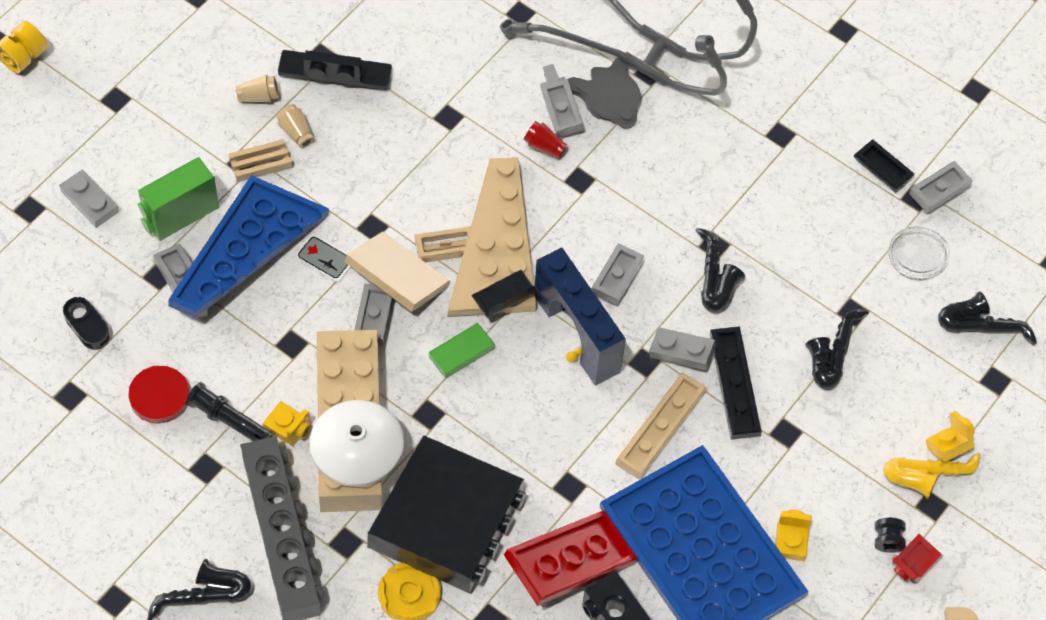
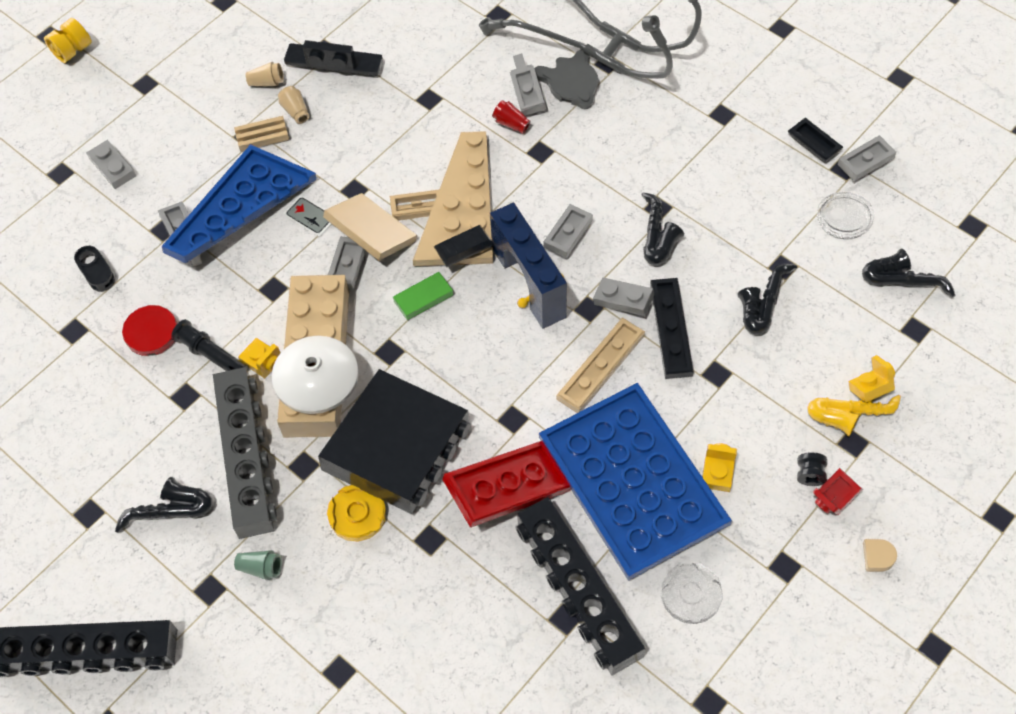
camera: 10 degrees right, 0 degrees up
(178, 199) = (182, 163): bright green brick -> none

